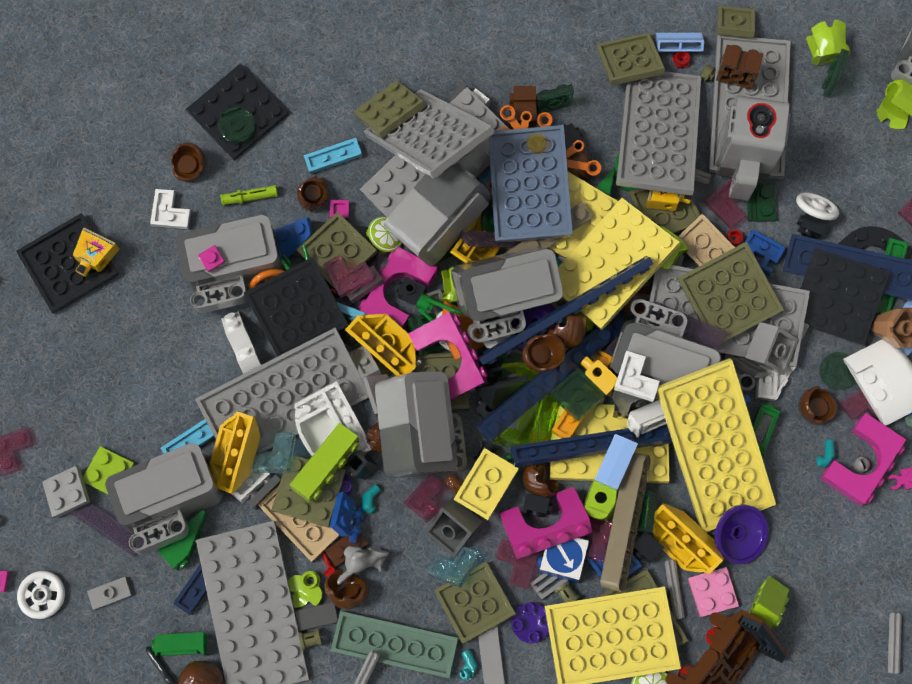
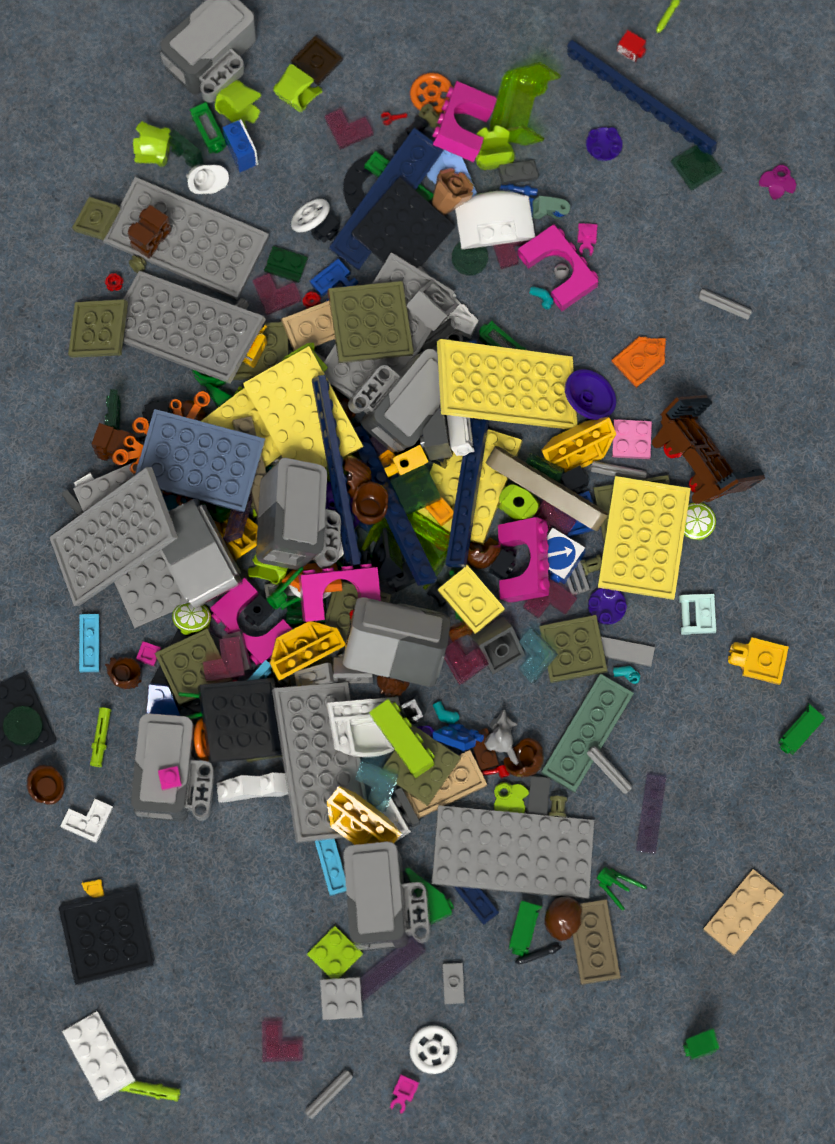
camera: 75 degrees left, 0 degrees up
(93, 252) = (108, 903): yellow torso -> none
(110, 234) = (94, 888): none -> yellow tile
(389, 109) = (64, 571): olive plate -> none
(536, 143) = (164, 440): clear yellow tile -> none
(616, 462) = (493, 475): light blue piece -> none
(630, 380) = (427, 432): white plate -> none
(679, 42) = (97, 277): light blue piece -> none
(696, 328) = (395, 360): clear purple tile -> none
(751, 143) = (237, 249): light grey piece -> none
(770, 602) = (657, 391): lime brick -> none
(802, 574) = (641, 359): none -> orange tile
(815, 103) = (207, 179): none -> white piece
(817, 406) = (497, 287): reddish brown piece -> none
(860, 119) = (240, 145): none -> blue piece
(866, 87) = (208, 128): none -> green window

